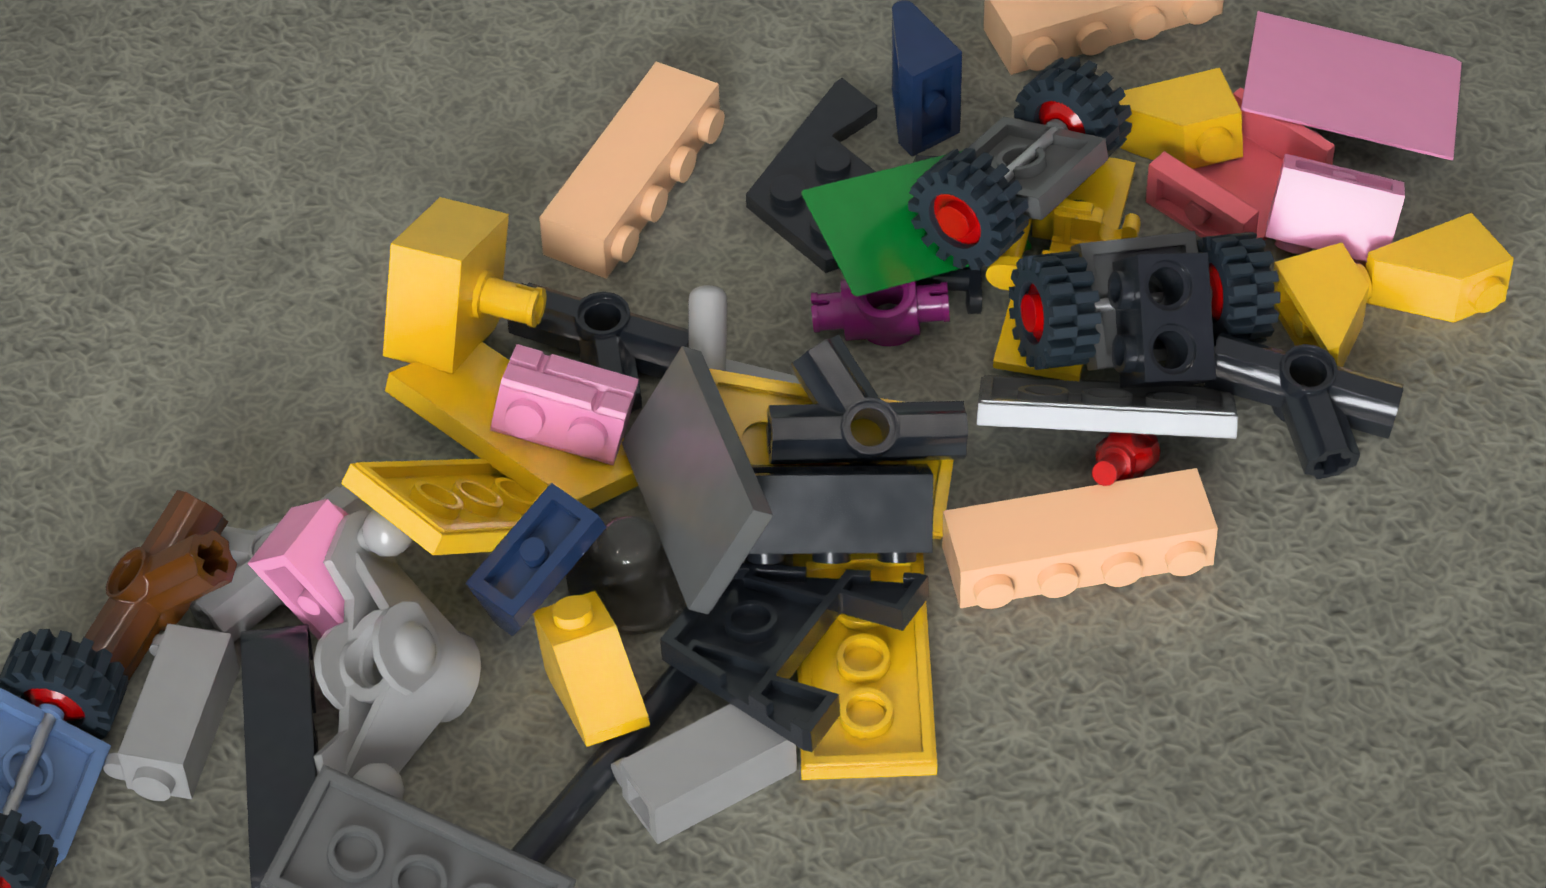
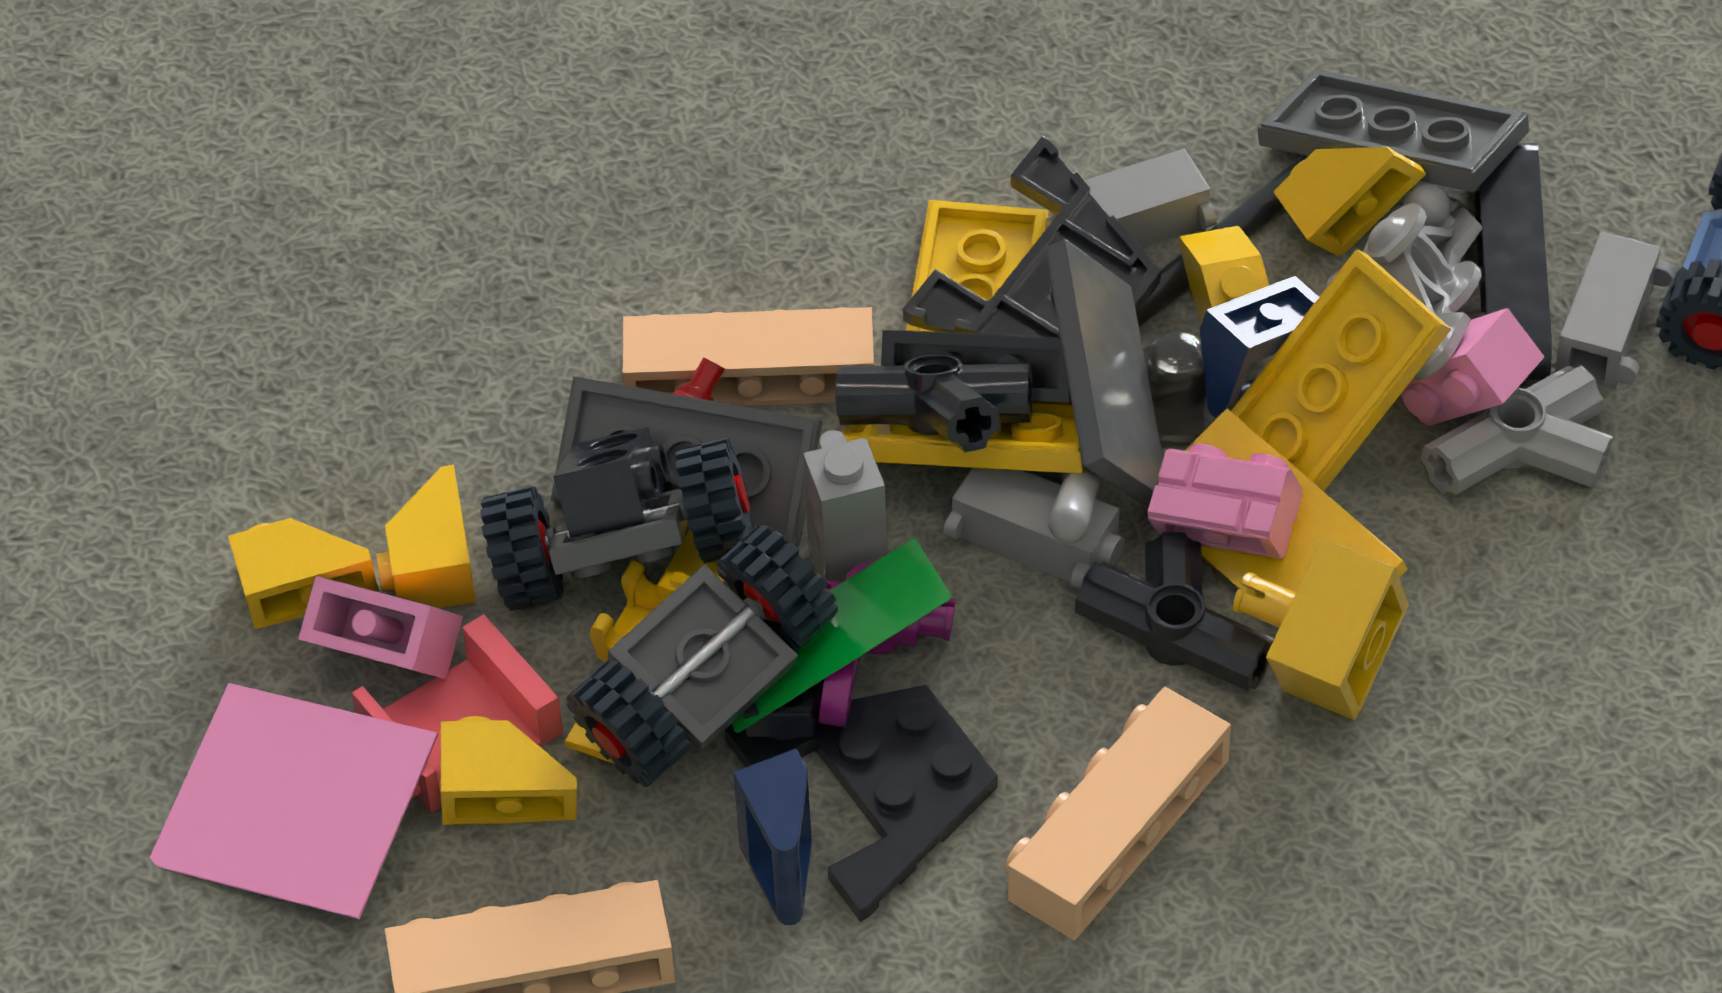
camera: 170 degrees left, 0 degrees up
(161, 579) = (1625, 382): reddish brown piece -> none
(467, 780) = (1345, 192): none -> yellow slope
(929, 332) = (844, 506): none -> light grey brick
(1315, 415) = (479, 449): black piece -> none

